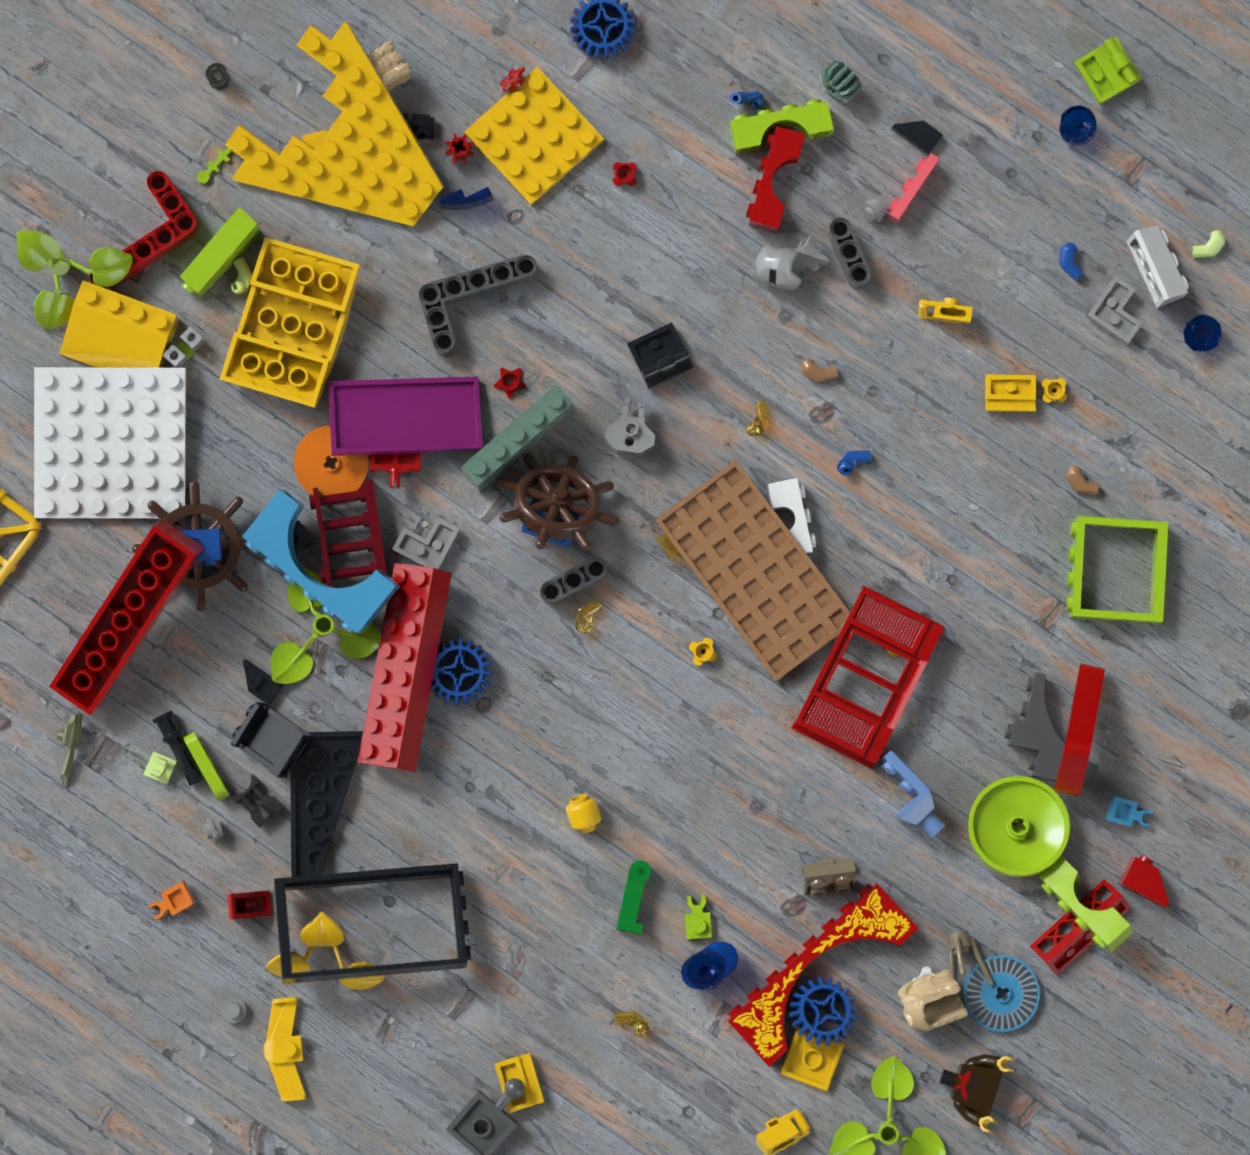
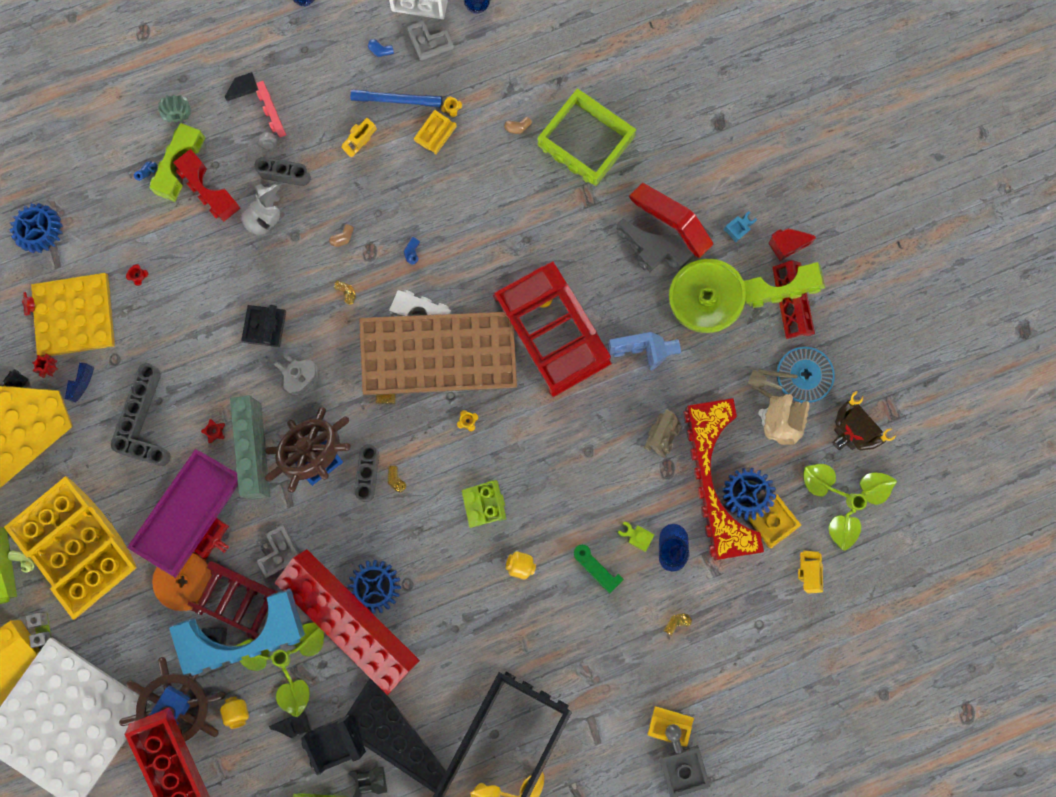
camera: 50 degrees left, 5 degrees down
(235, 613) = (234, 712): none -> yellow head
(623, 730) = (484, 504): none -> lime plate
(1041, 355) = (365, 96): none -> blue piece

